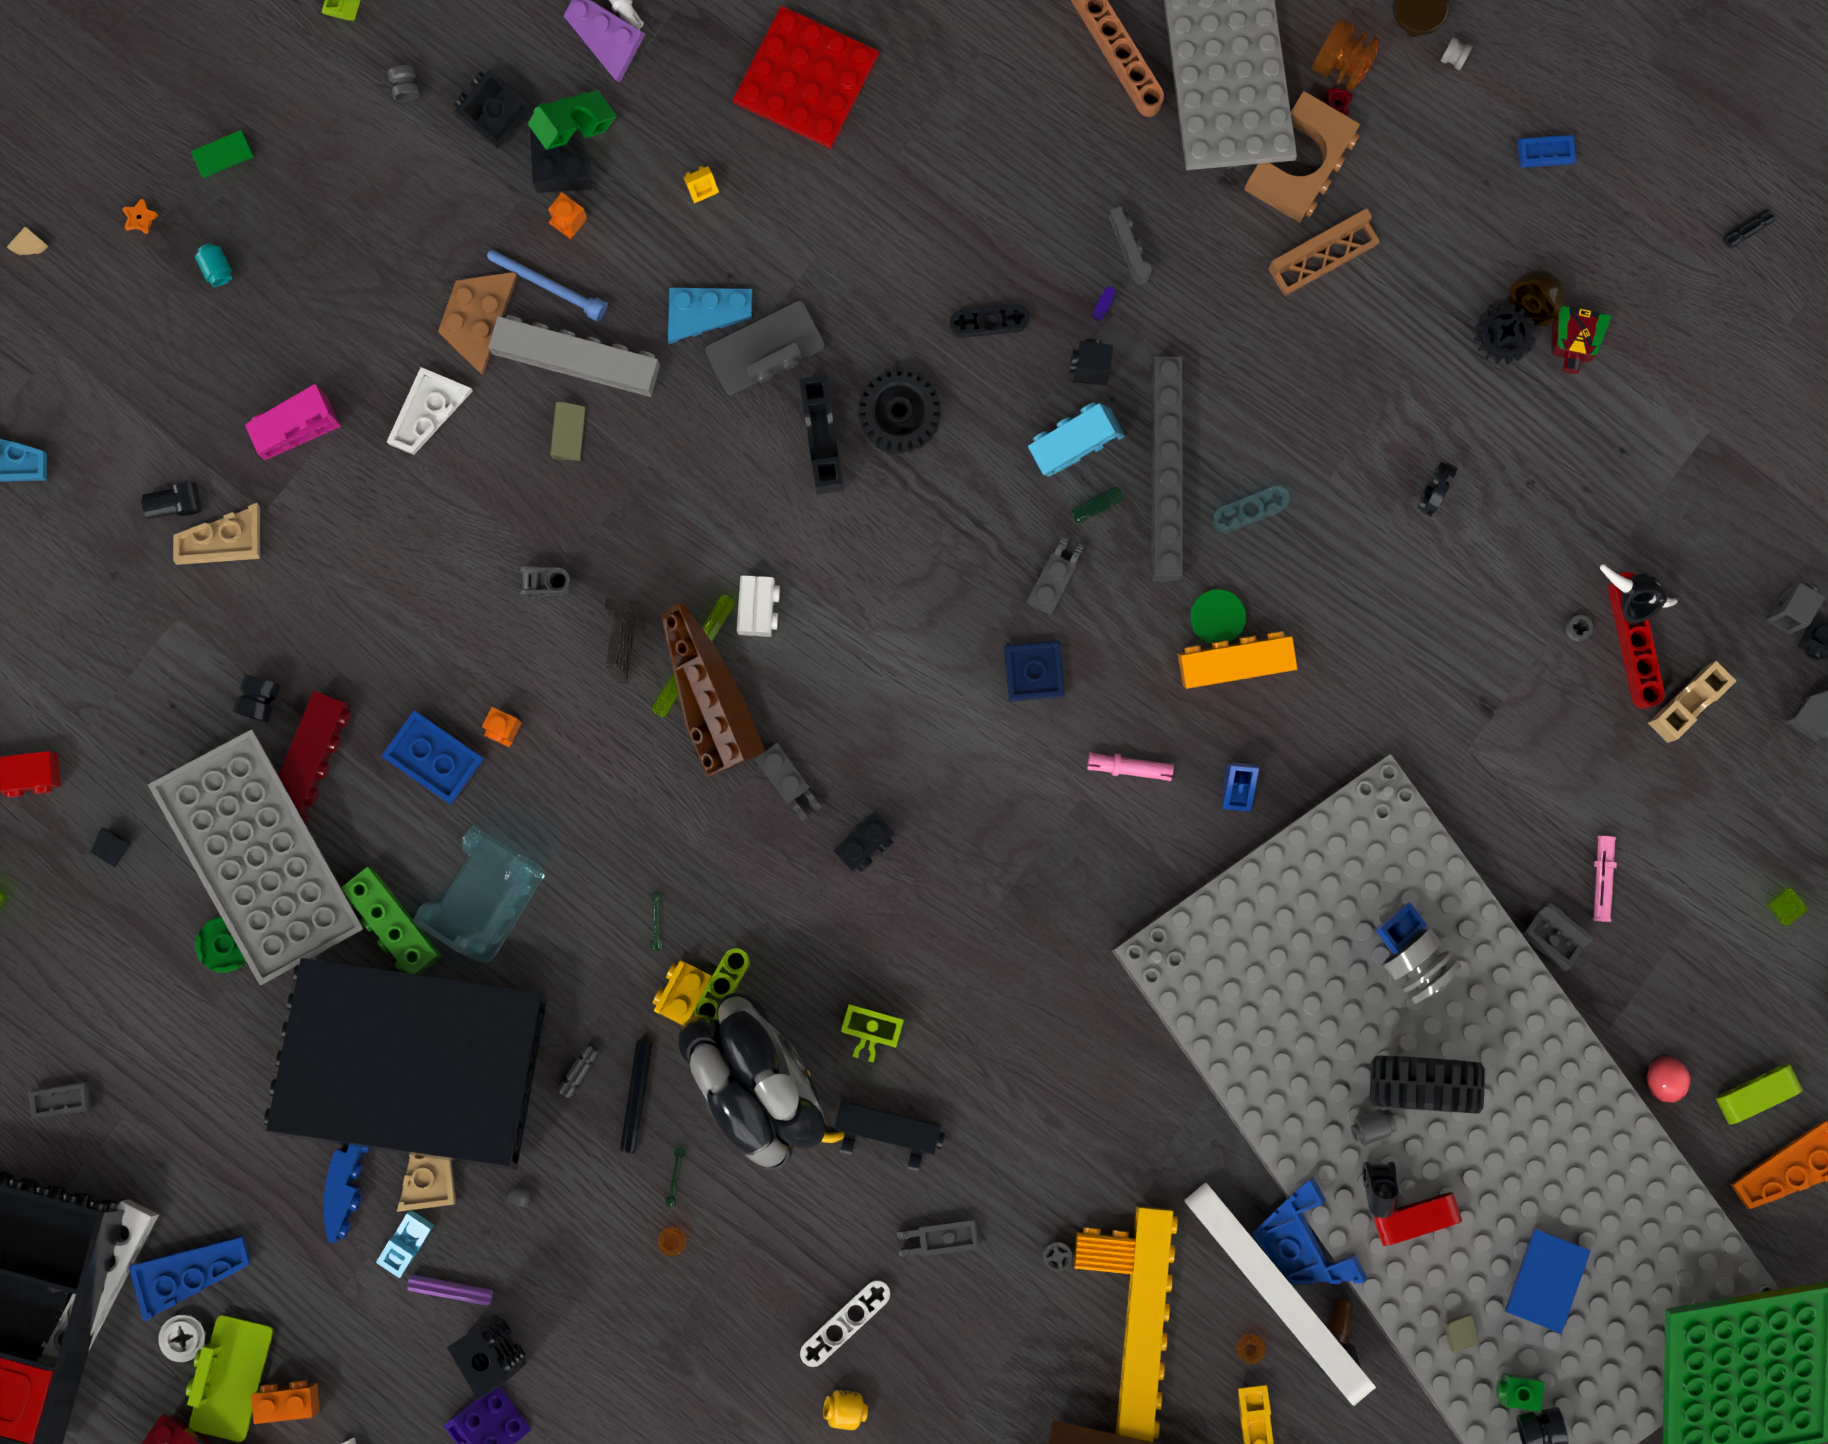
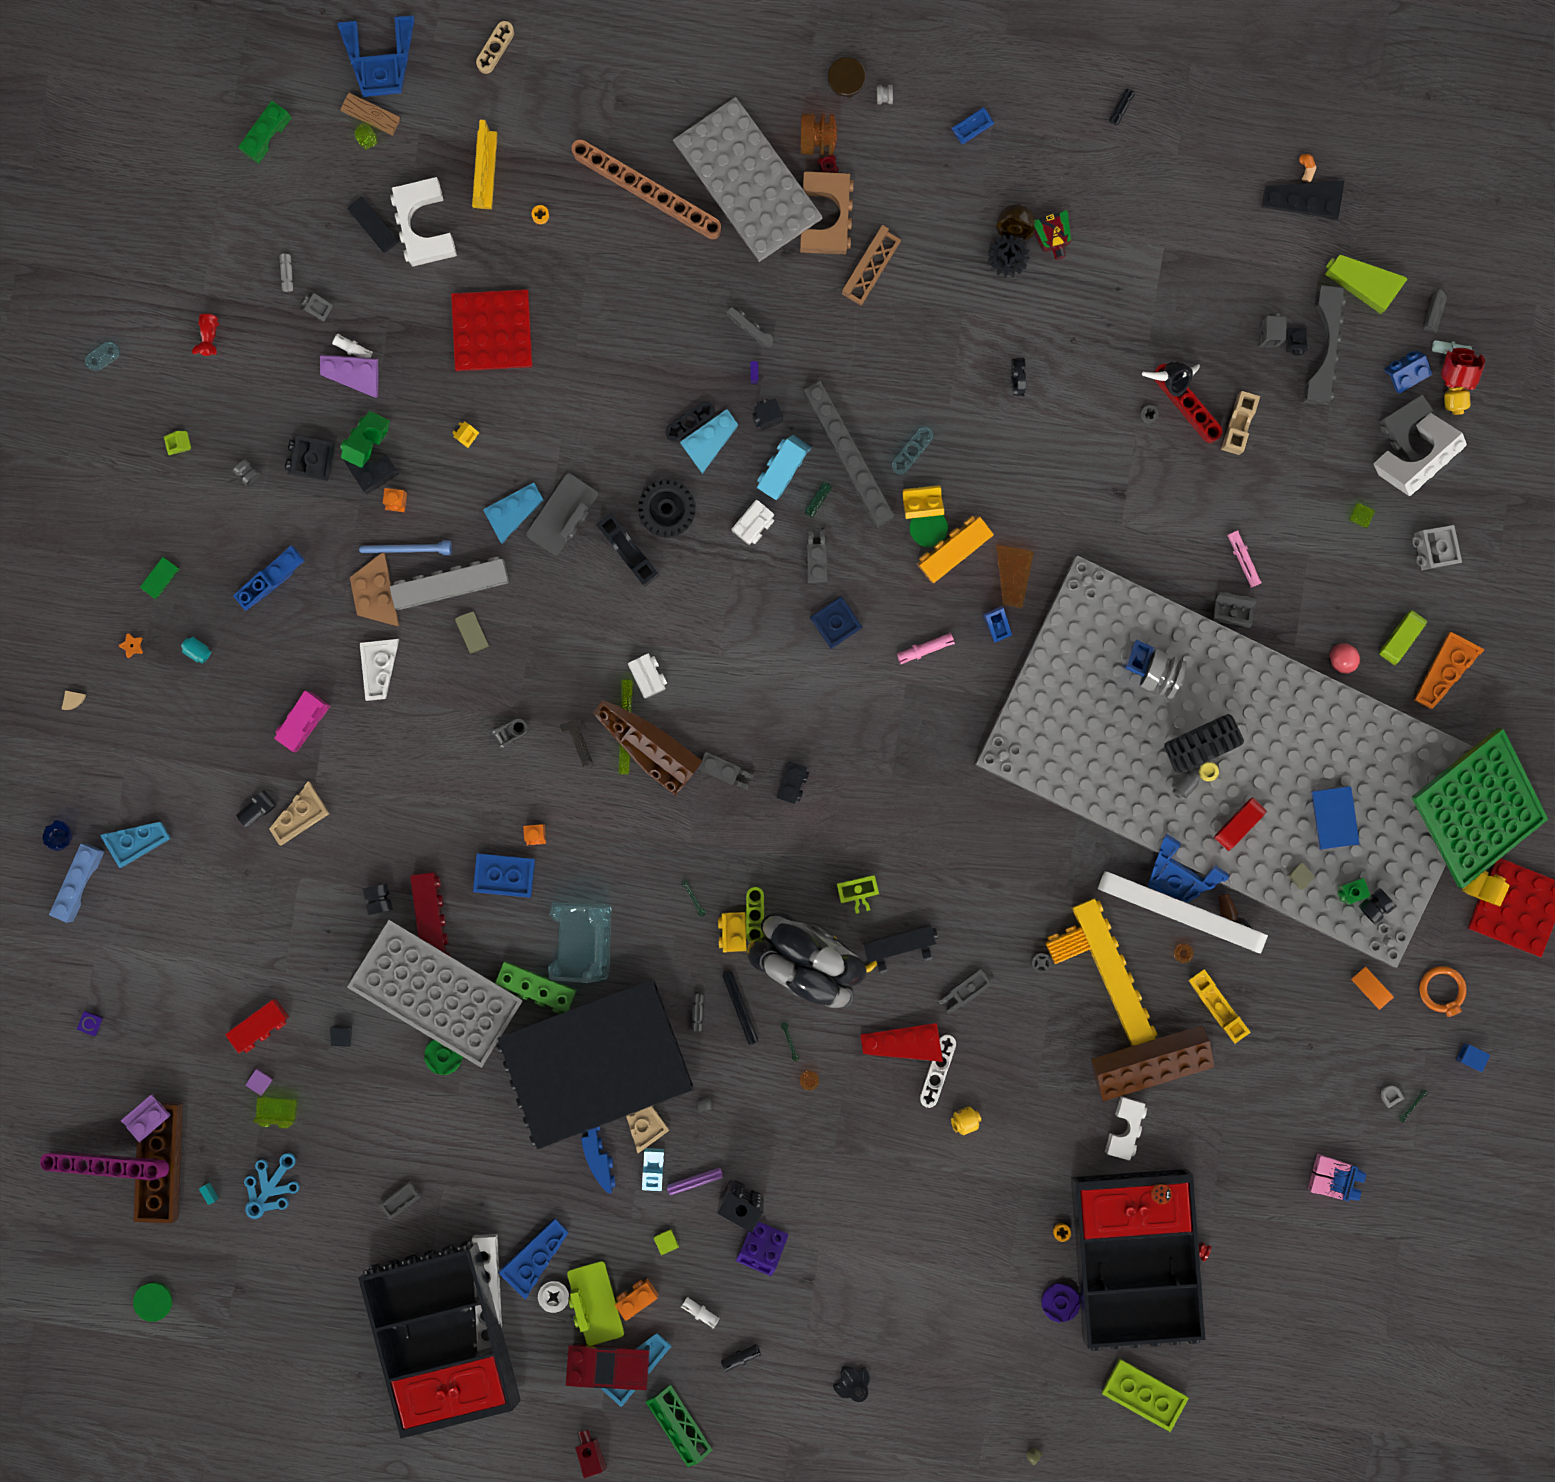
camera: 30 degrees left, 5 degrees up
(356, 228) = (269, 579): none -> blue slope
(368, 1349) = (666, 1242): none -> lime tile
(827, 1264) = (911, 1042): none -> red wing
(998, 489) = (753, 522): none -> white brick
(999, 356) = (709, 439): none -> medium azure wing
(1229, 579) = (922, 502): none -> yellow bracket
(1296, 735) = (1014, 574): none -> clear orange wing
(1380, 1188) = (1209, 818): black piece -> none
(1412, 1126) = (1208, 771): none -> light yellow tile

